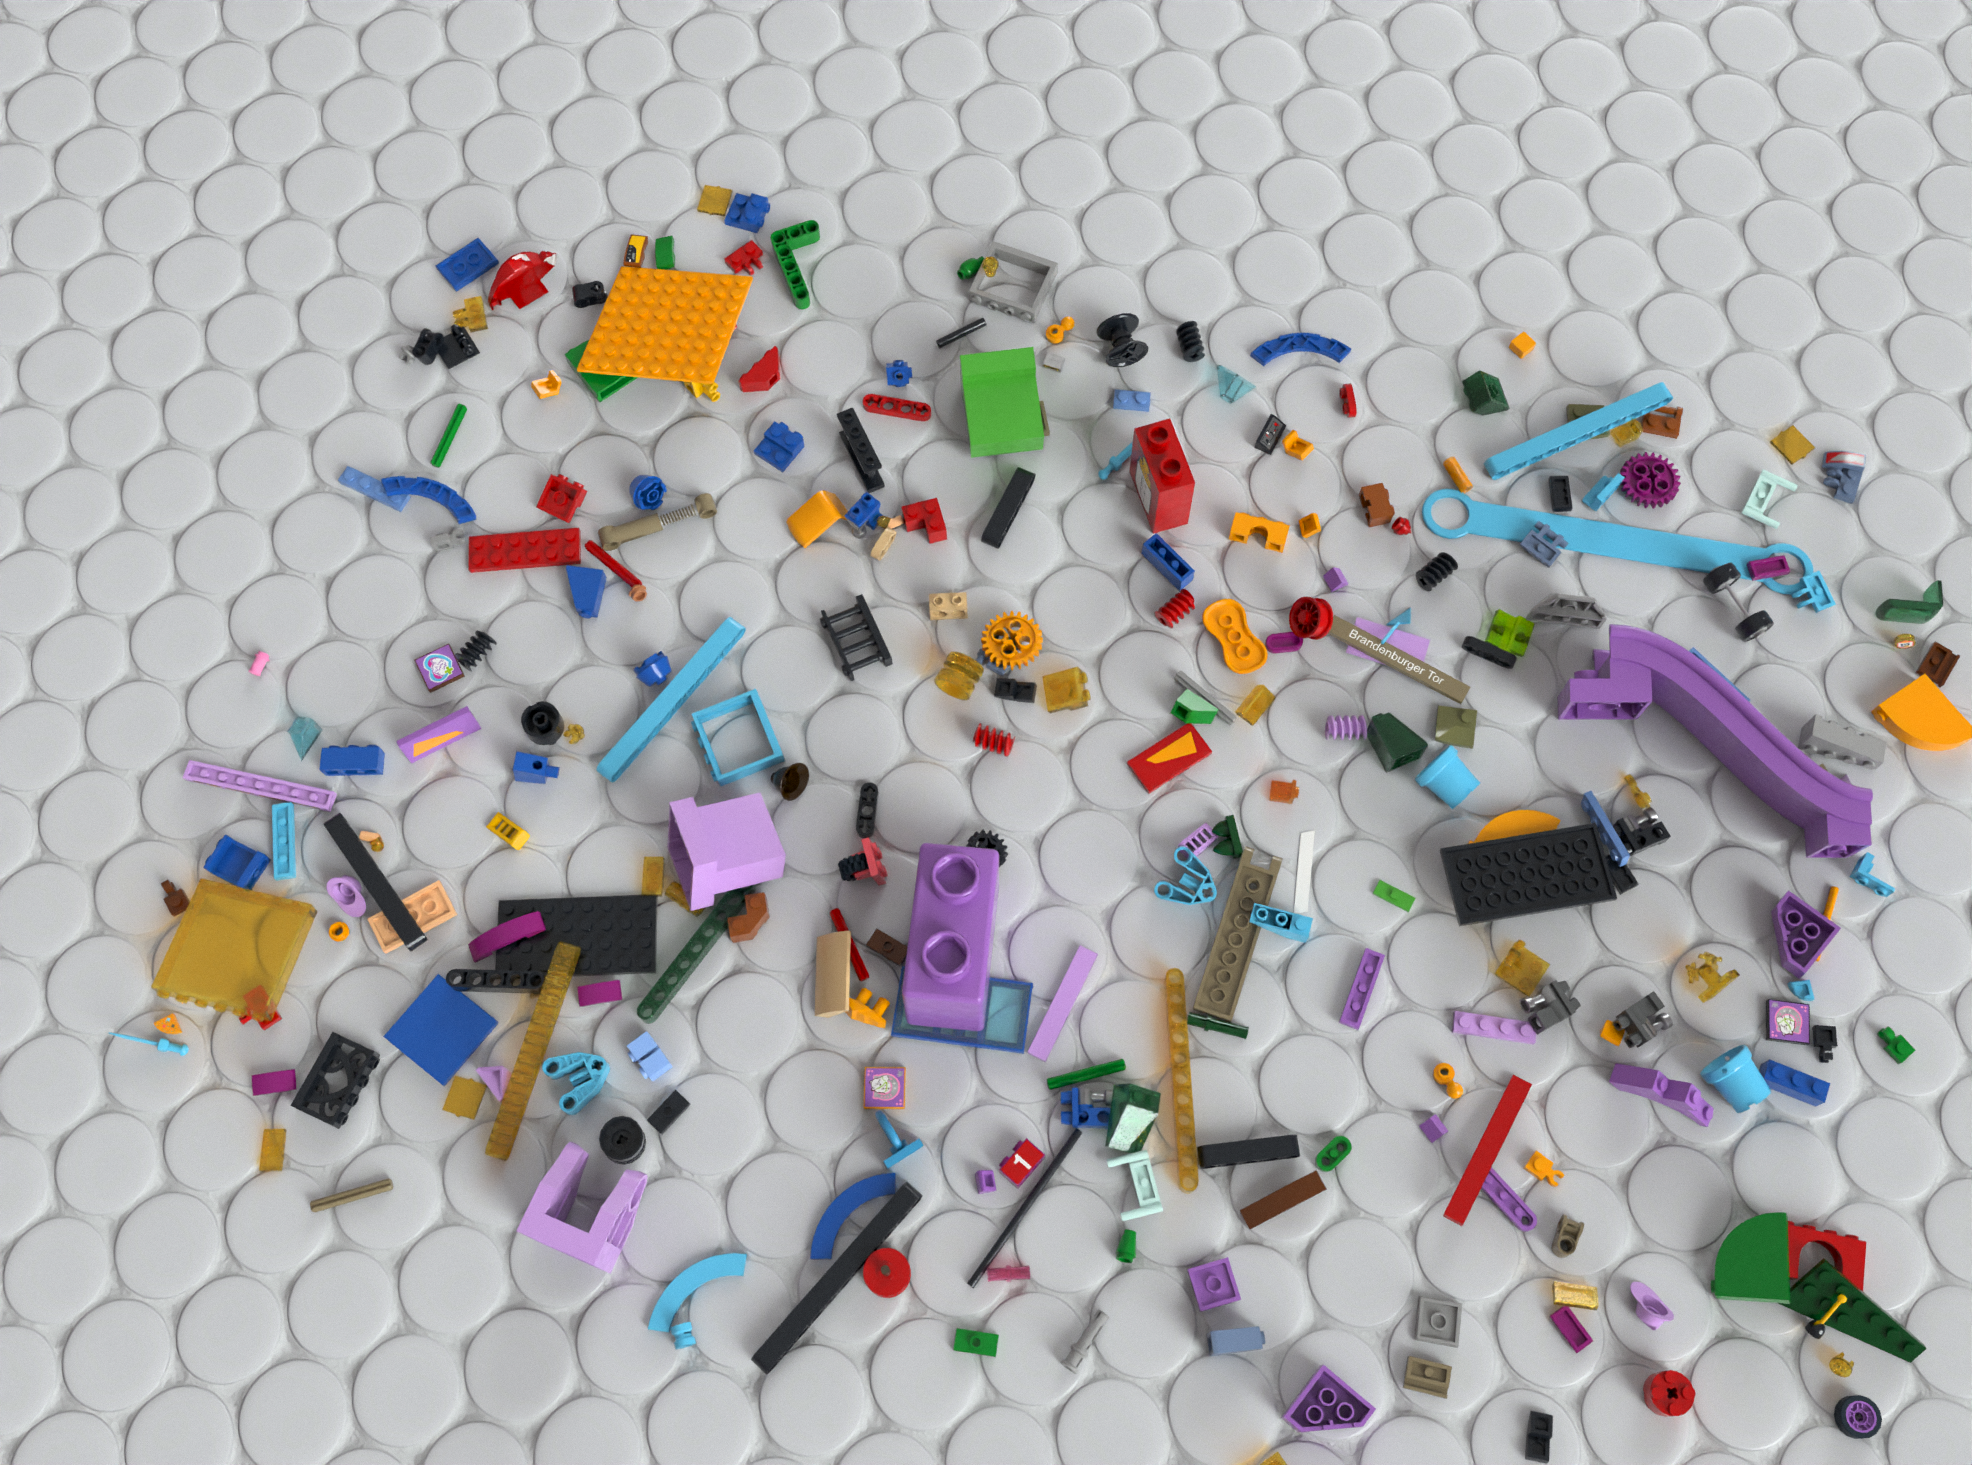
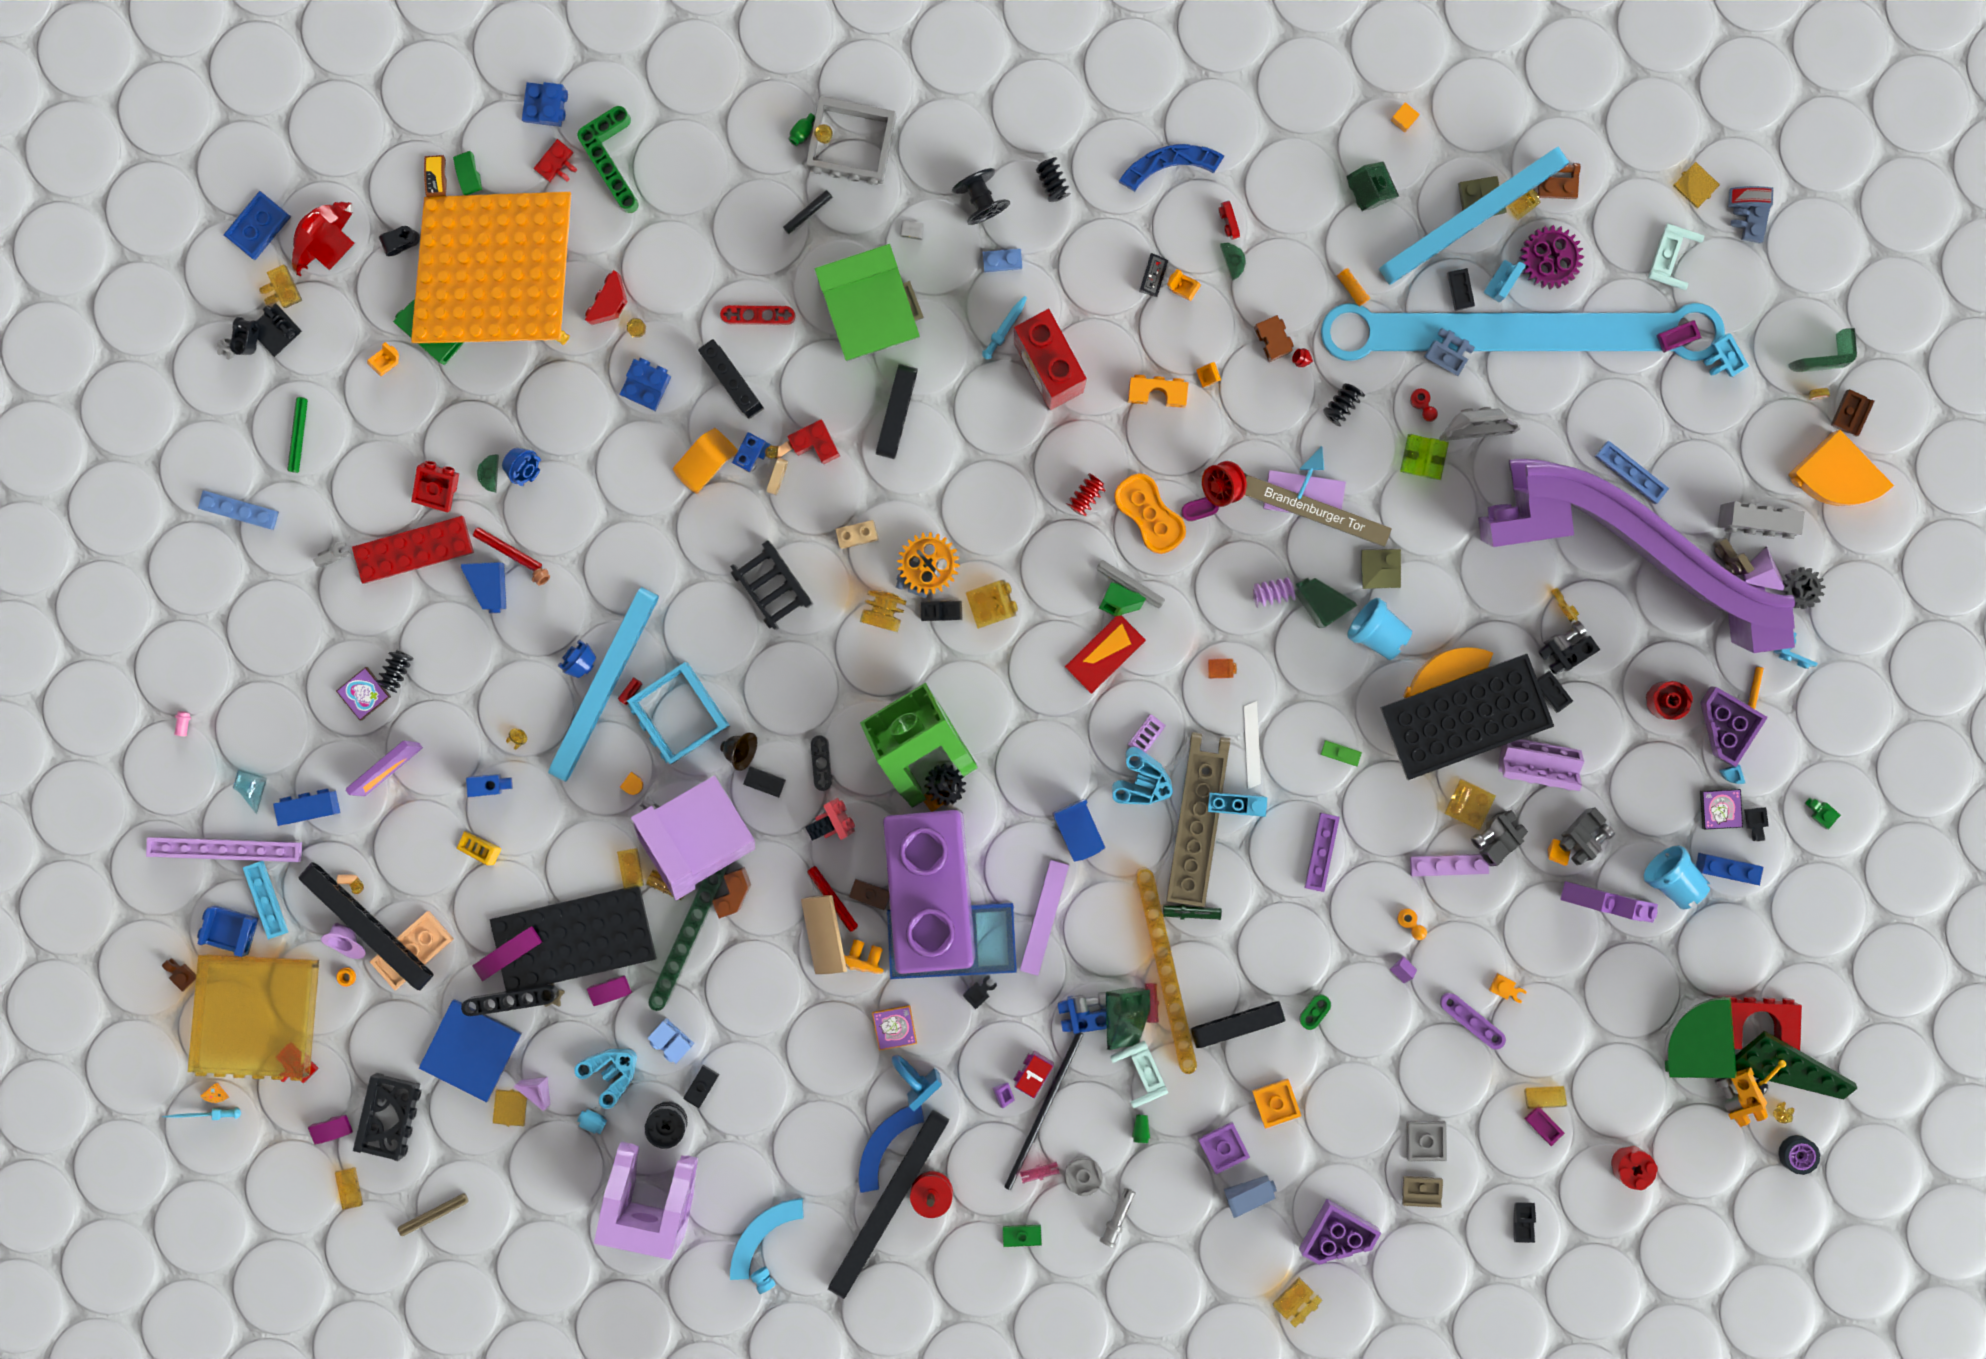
camera: 10 degrees left, 20 degrees up
(433, 490) = (299, 501): blue tile -> none
(532, 1051) = (561, 1056): clear yellow beam -> none
(542, 723) = (493, 734): black brick -> none
(545, 1126) = (591, 1121): none -> medium azure brick
(613, 537) = (501, 519): dark tan piece -> none
(614, 494) = (488, 473): none -> clear green plate
(674, 794) = (632, 784): none -> light orange tile
(702, 704) = (630, 690): none -> red piece
(714, 200) = (505, 94): clear yellow piece -> none
(783, 399) = (636, 327): none -> clear yellow tile
(806, 817) = (764, 782): none -> black plate
(896, 367) = (751, 277): blue brick -> none
(962, 779) = (908, 732): none -> bright green brick
(979, 1067) = (978, 993): none -> black plate
(993, 740) = (930, 670): red piece -> none
(1055, 1288) = (1083, 1176): none -> light grey tile
(1067, 324) = (918, 181): light orange plate -> none
(1086, 1074) = (1077, 980): green axle -> none
(1113, 917) = (1079, 830): none -> blue piece
(1159, 1124) = (1153, 1014): none -> clear pink pin
(1168, 562) = (1070, 445): blue brick -> none
(1232, 385) = (1104, 223): clear light blue slope -> none
(1232, 845) = (1179, 734): dark green tile -> none
(1255, 704) = (1180, 581): clear yellow slope -> none
(1278, 1245) = (1276, 1103): none -> light orange plate
(1283, 1199) = (1275, 1062): reddish brown slope -> none
(1335, 579) = (1242, 429): medium lavender slope -> none
(1348, 434) = (1234, 259): none -> clear green plate
(1487, 1150) = (1455, 984): red tile -> none
(1489, 652) = (1406, 483): black beam -> none
(1519, 594) = (1429, 413): none -> red plate
(1569, 1233) = (1534, 1045): dark tan piece -> none
(1600, 938) = (1542, 764): none -> lavender brick
(1607, 832) = (1540, 659): medium blue plate -> none
(1649, 1306) = (1613, 1095): lavender piece -> none
(1711, 977) = (1645, 780): clear yellow piece -> none
(1738, 899) = (1680, 701): none -> red brick
(1754, 625) = (1667, 408): black axle -> none
(1802, 1336) = (1747, 1100): none -> light orange hips
(1890, 815) = (1810, 584): none -> dark grey gear

